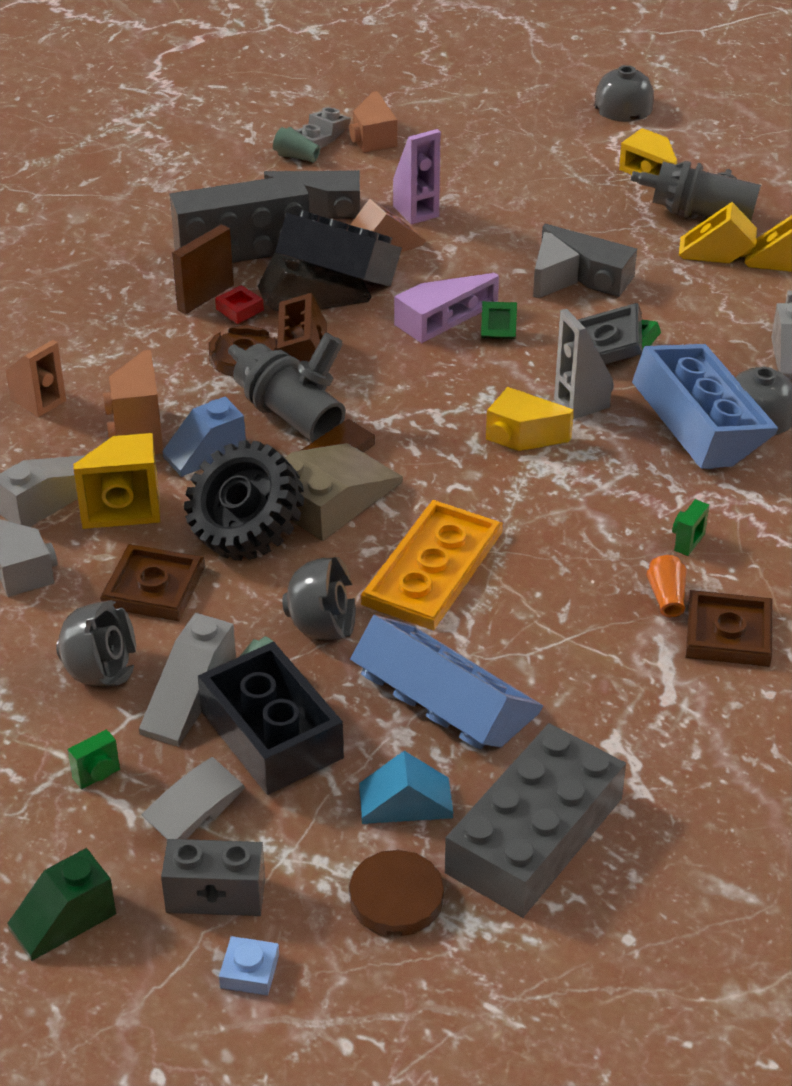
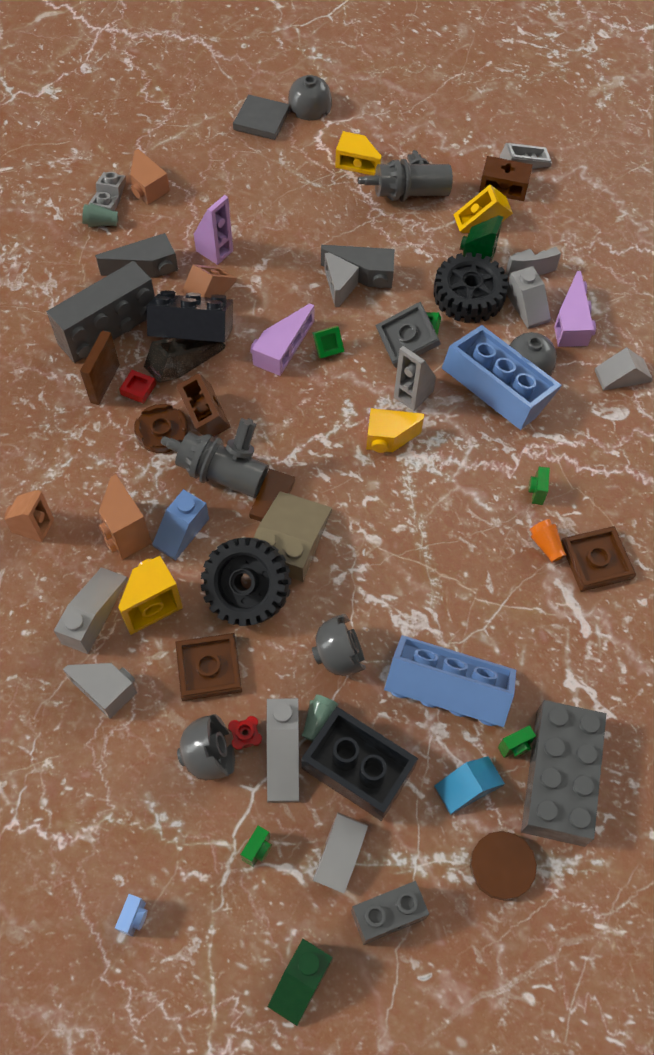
camera: 25 degrees left, 20 degrees up
(152, 654) = (245, 741): none -> red plate
(249, 965) = (442, 967): light blue plate -> none
(432, 564) = (388, 577): light orange tile -> none
(488, 765) = (517, 743): none -> green plate
(553, 102) = (261, 117): none -> dark grey tile
(720, 237) = (437, 217): yellow slope -> none
(721, 314) = (470, 287): none -> black wheel
(762, 273) = (482, 238): none -> dark green slope

